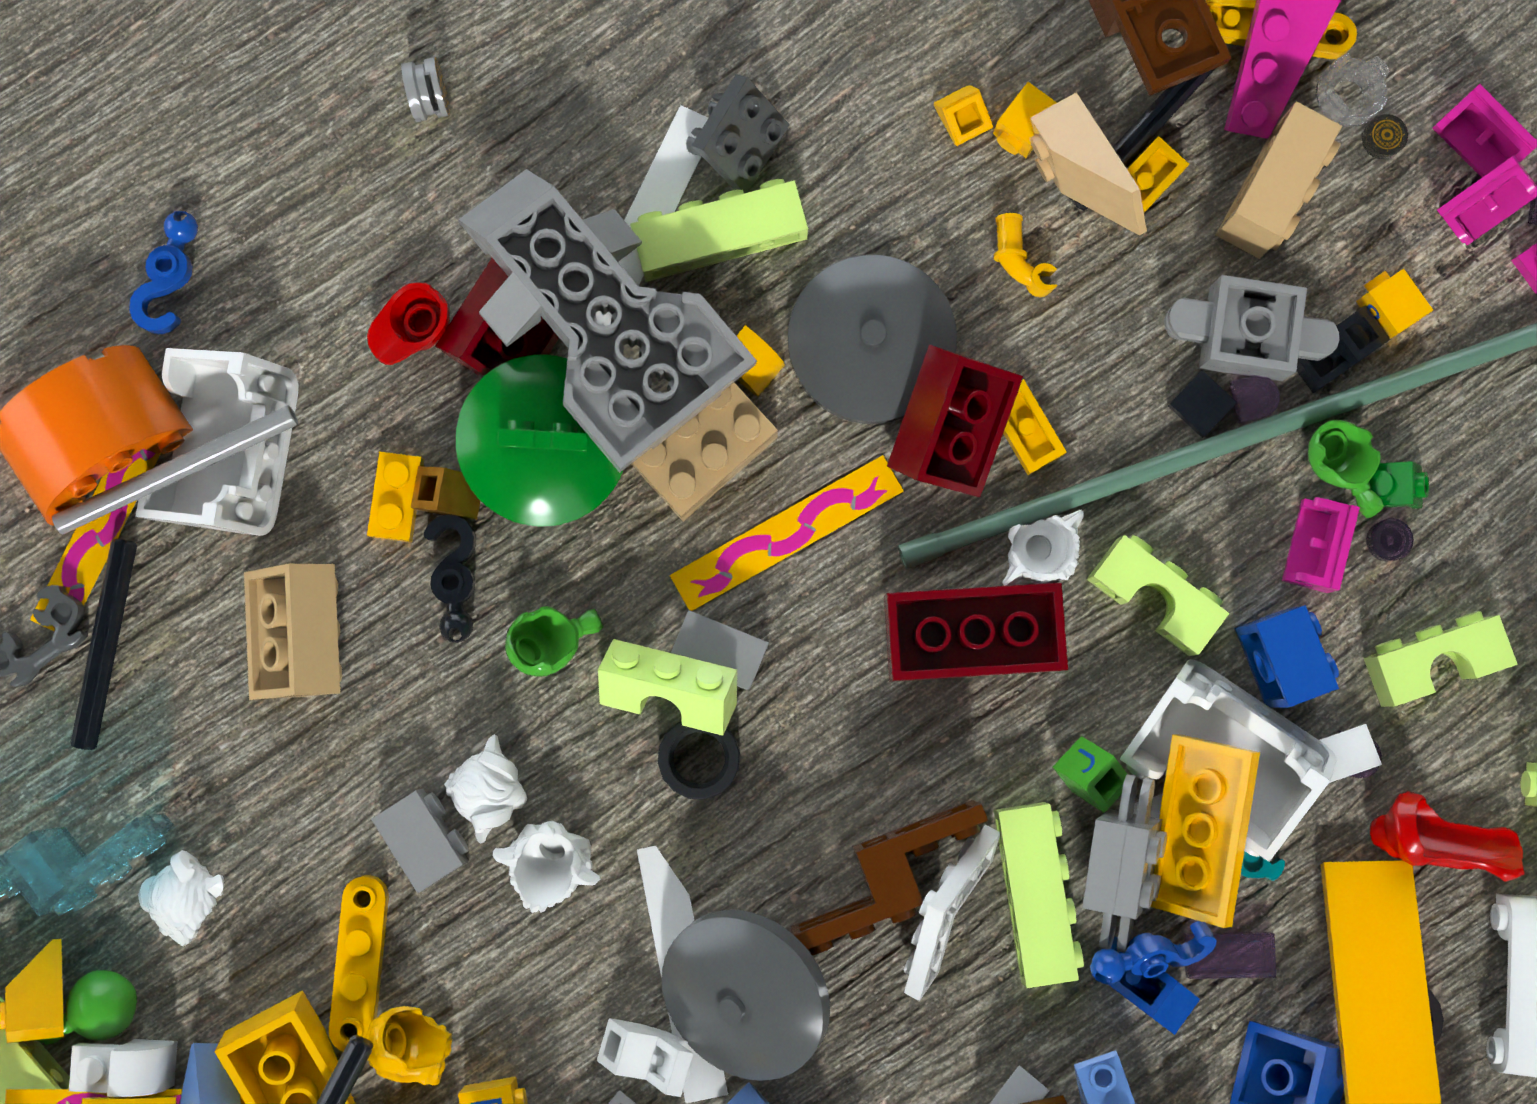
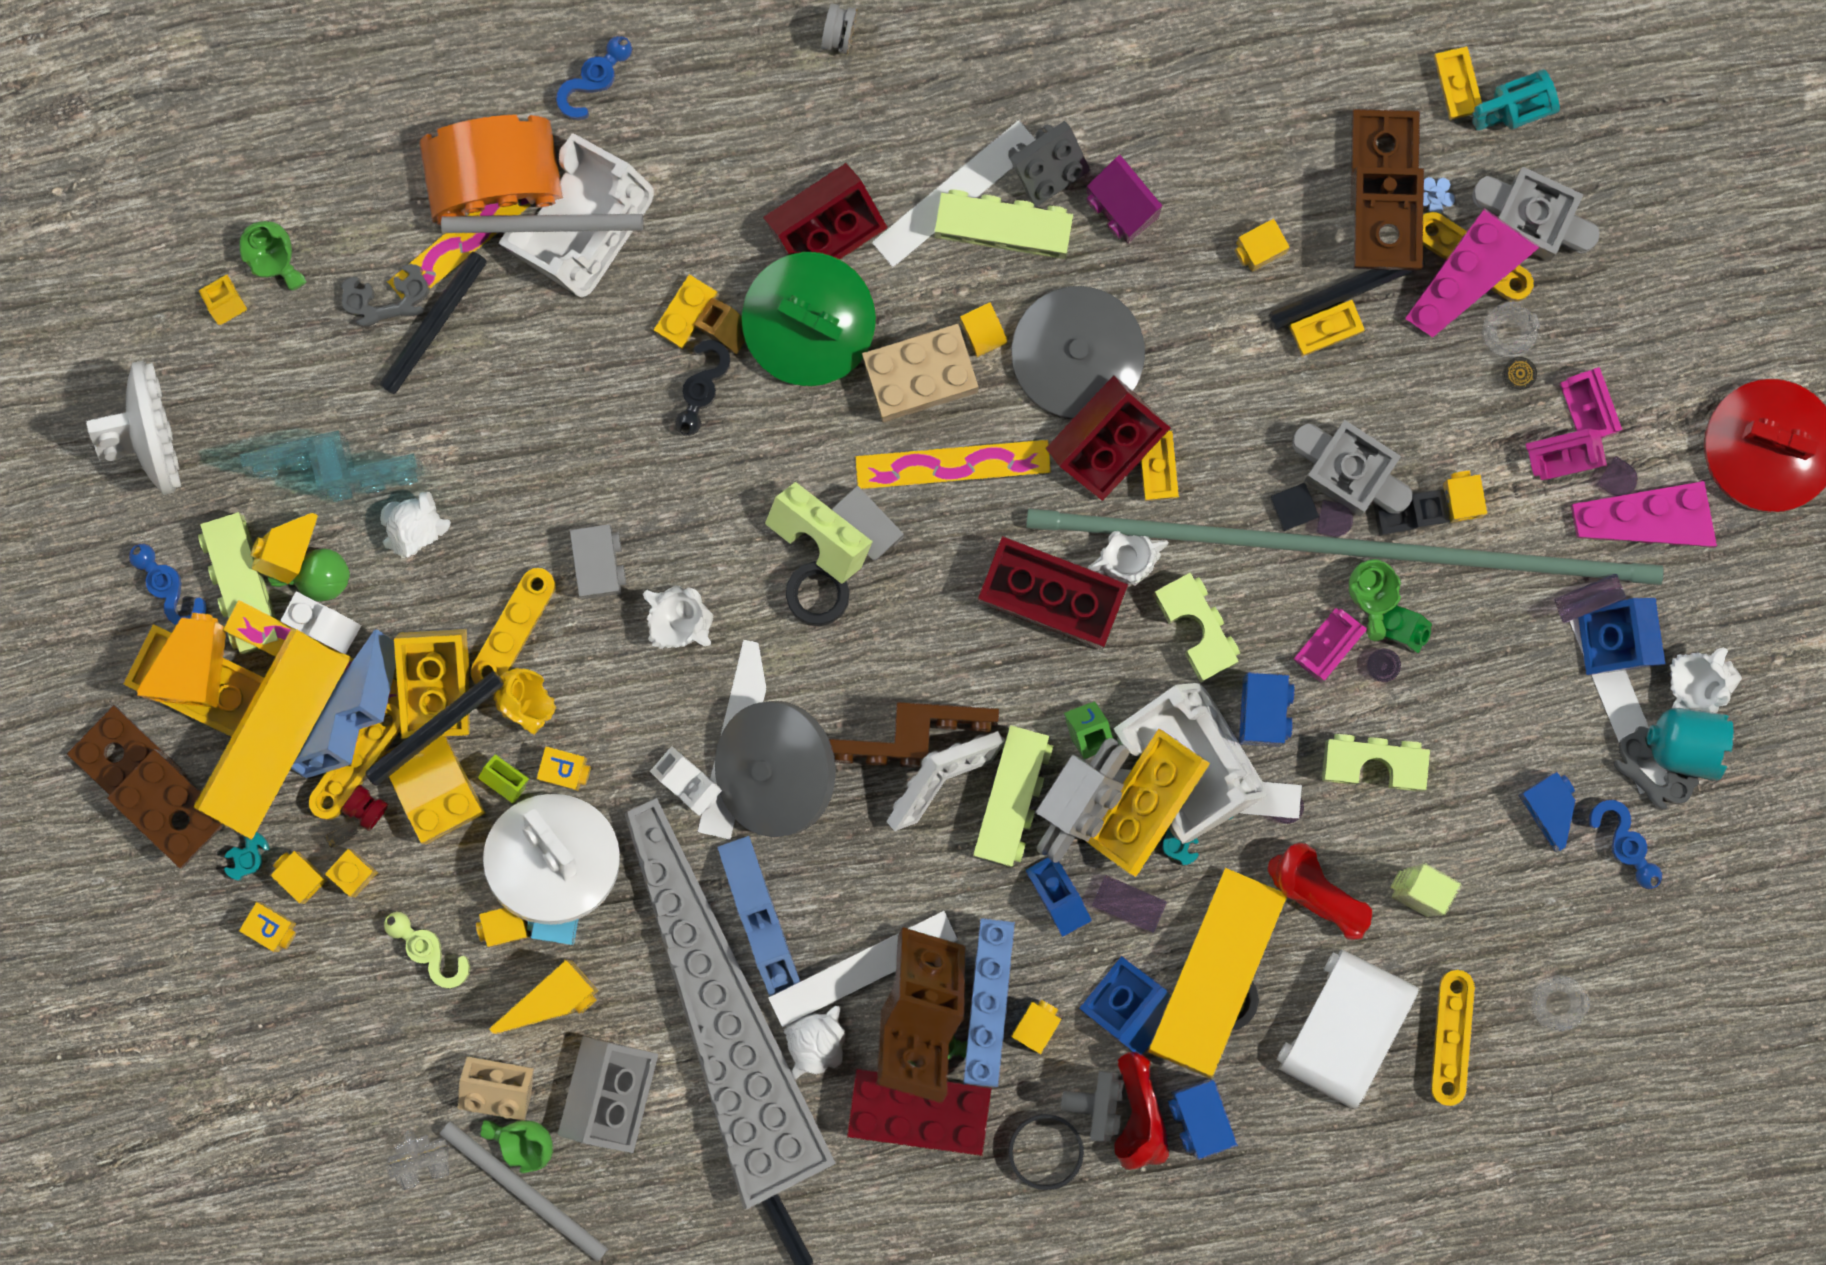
camera: 25 degrees right, 0 degrees up
(292, 631) = (570, 374): tan slope -> none
(408, 323) = (751, 192): red piece -> none
(486, 789) = (658, 547): white hair -> none
(547, 640) = (748, 462): bright green hair -> none
(567, 274) = (880, 211): light grey piece -> none
(845, 137) = (1123, 200): none -> magenta slope
(964, 114) = (1220, 220): yellow slope -> none
(1012, 256) = (1206, 341): yellow piece -> none
(1085, 164) = (1280, 285): tan slope -> none
(1151, 954) = (1070, 868): blue piece -> none
(1280, 181) = (1420, 372): tan brick -> none

